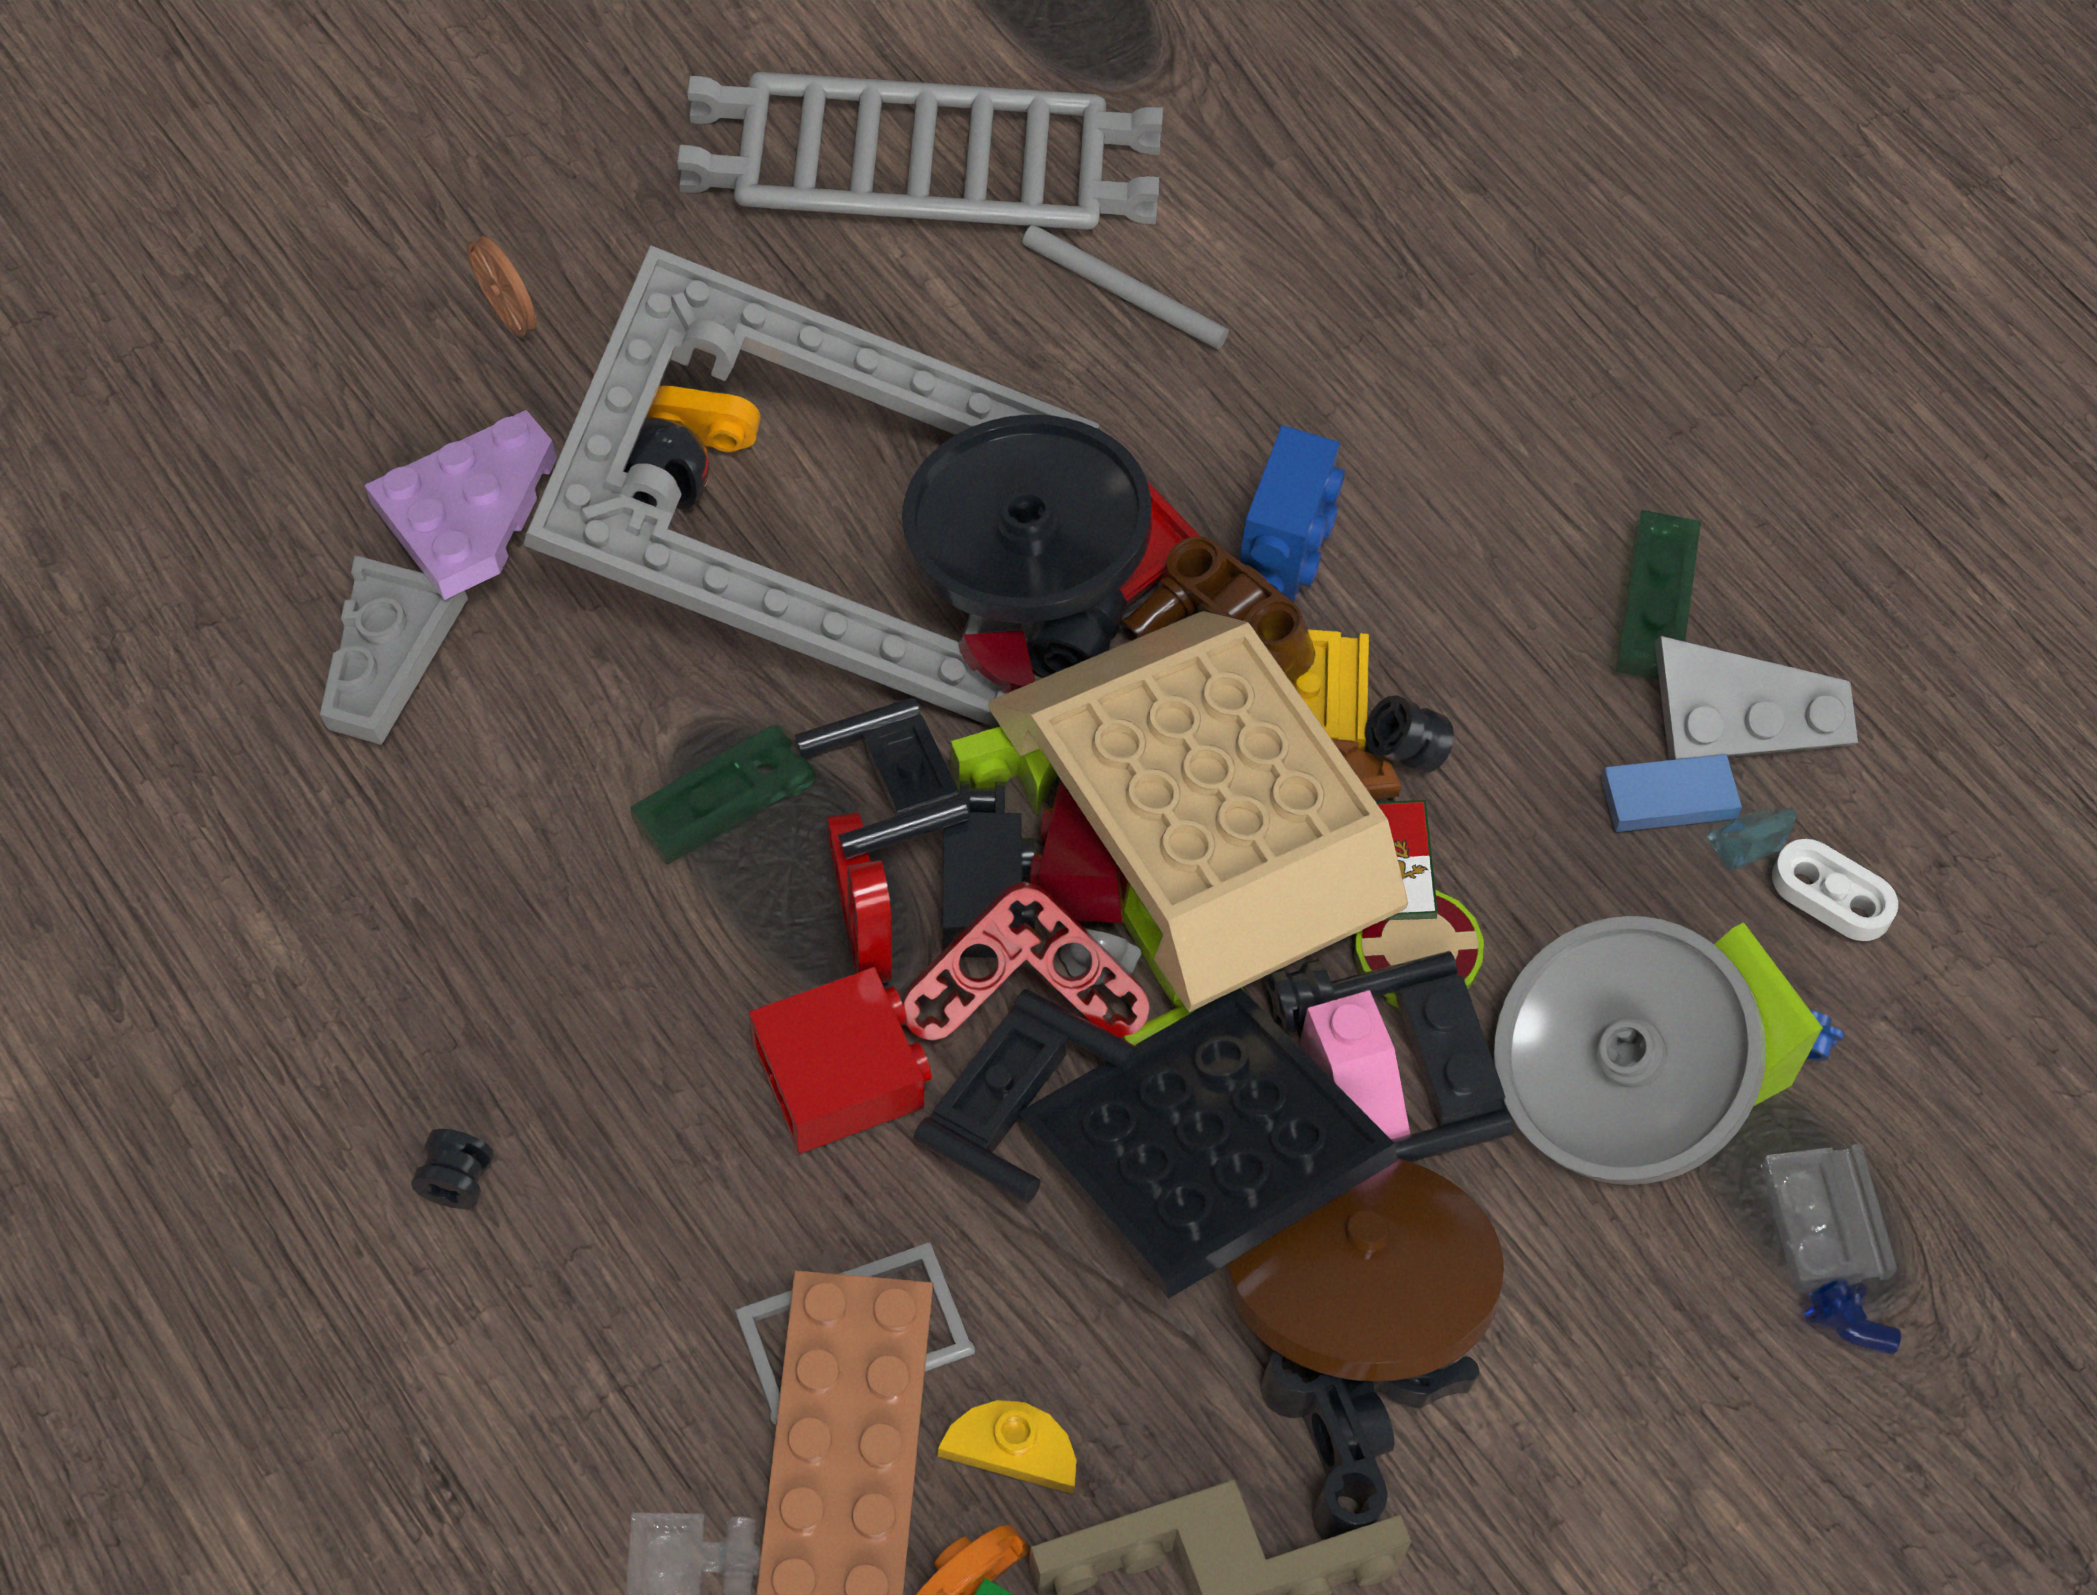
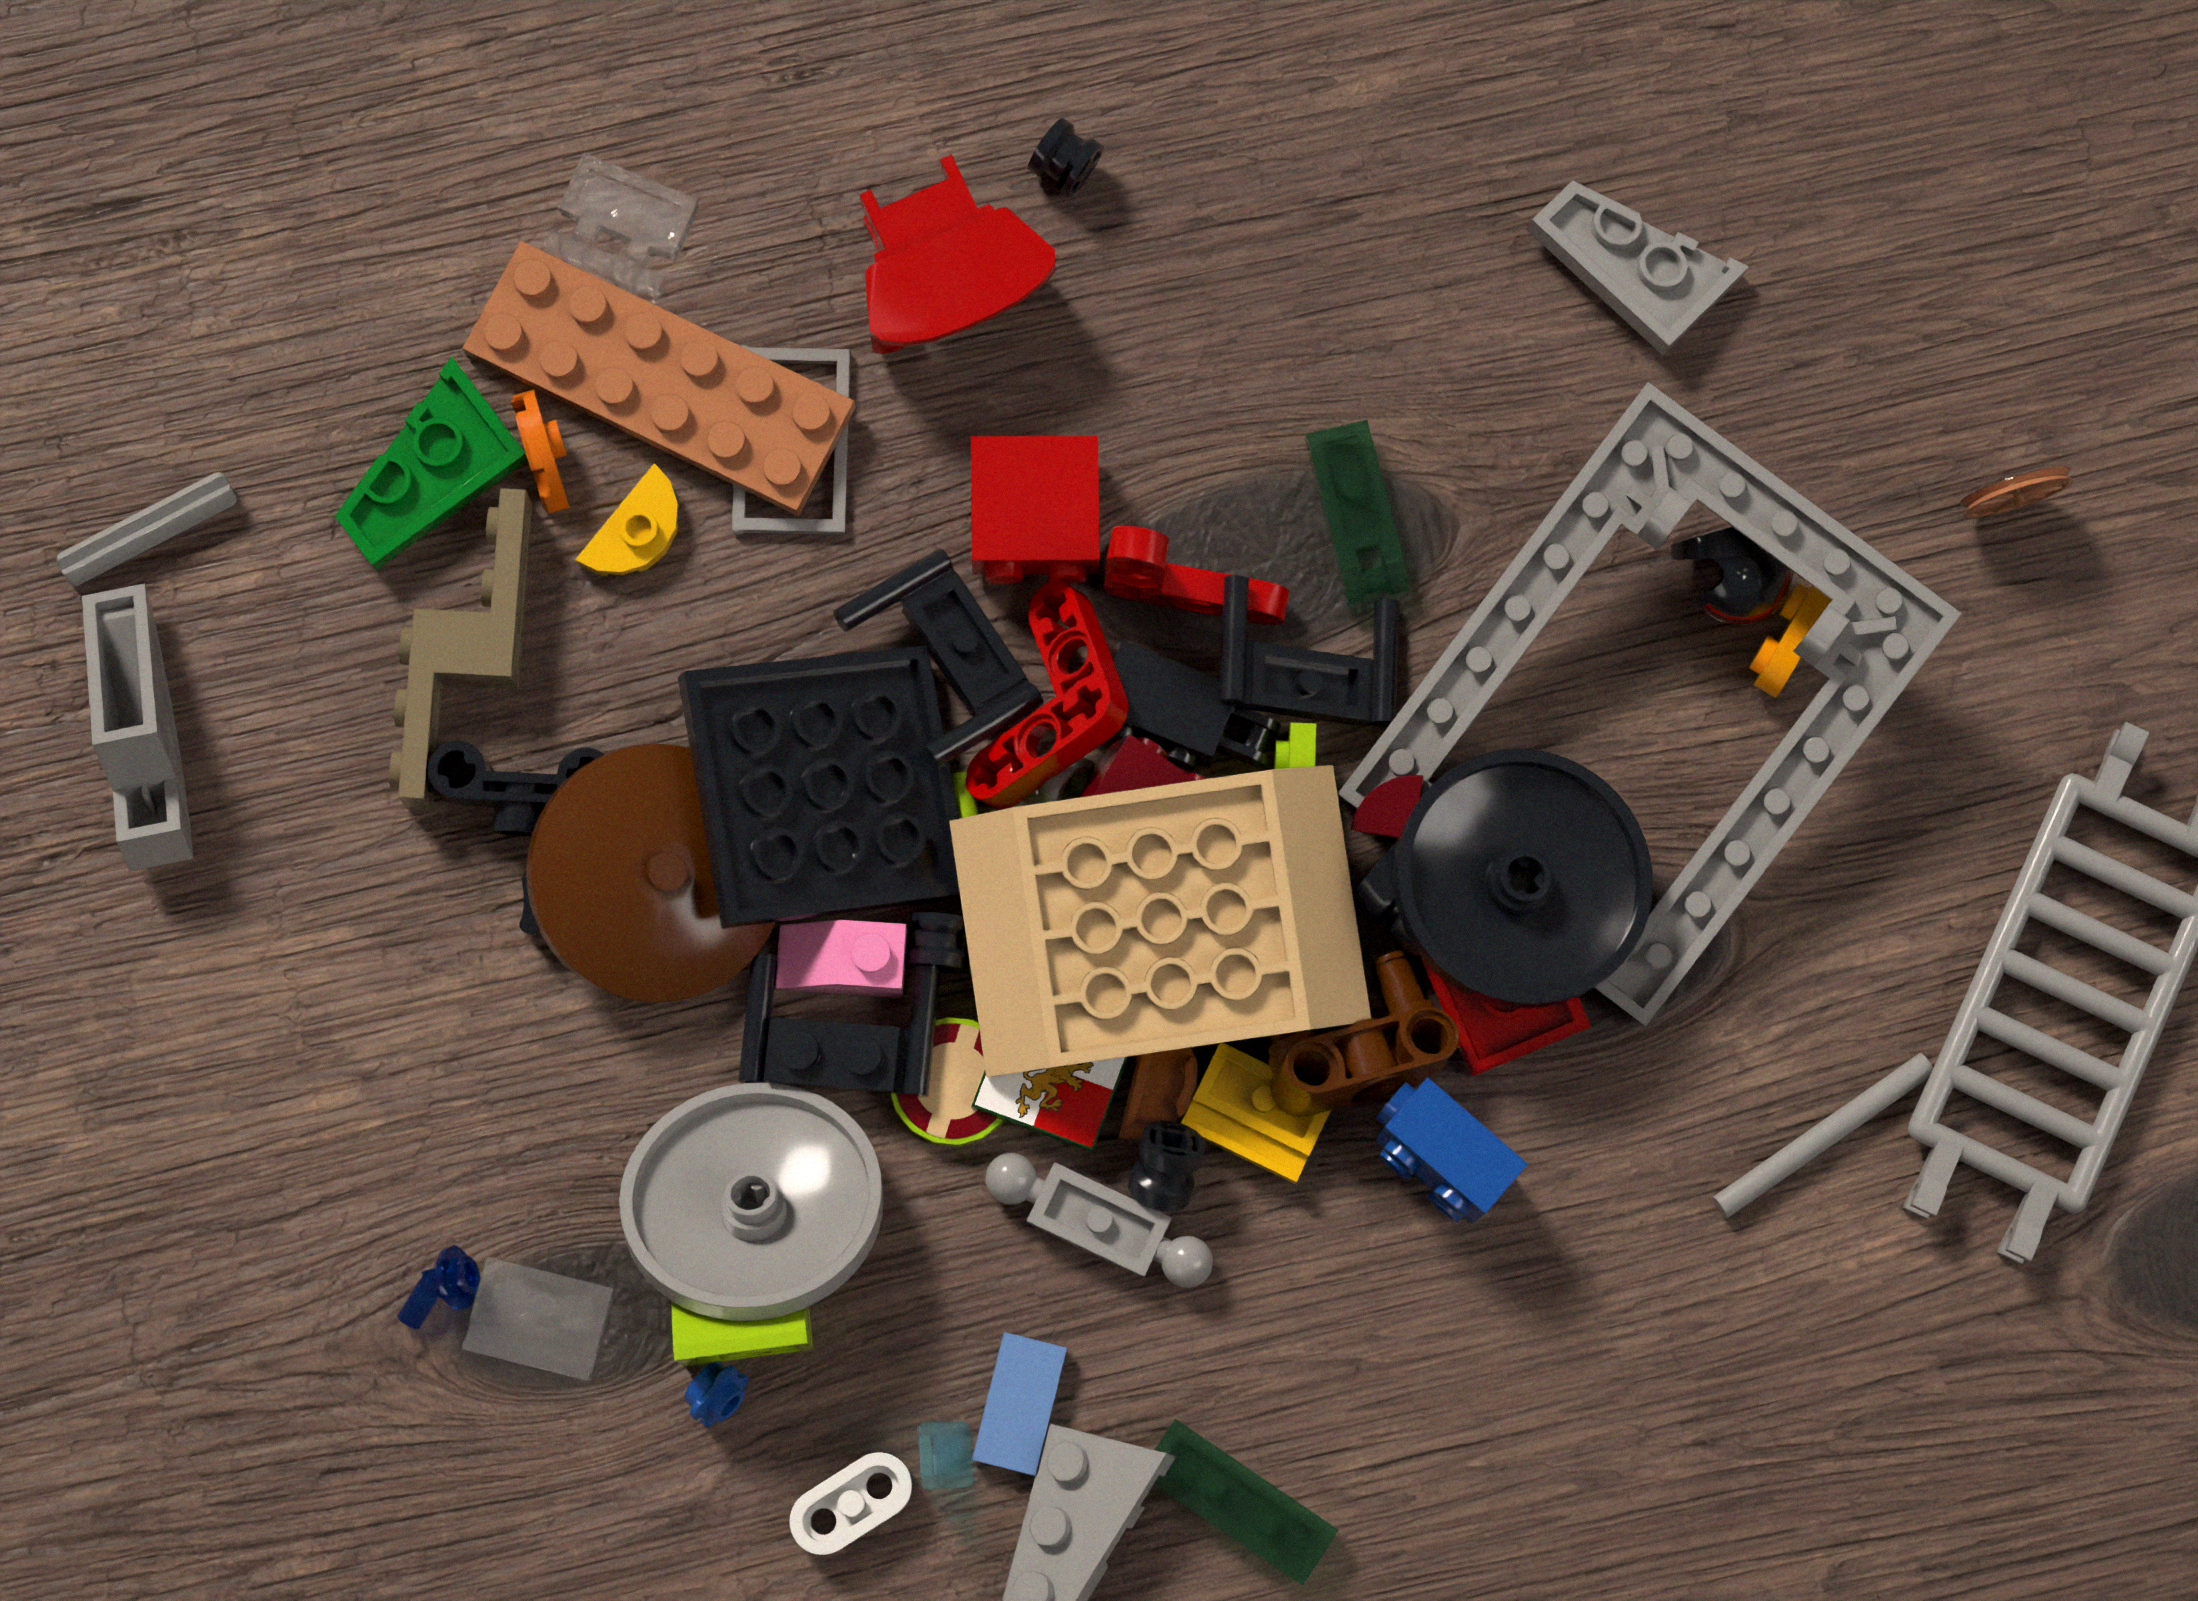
camera: 110 degrees right, 20 degrees up
(466, 501) = (1772, 383): lavender plate -> none
(618, 1217) = (946, 263): none -> red piece
(1481, 782) = (1099, 1220): none -> light grey plate

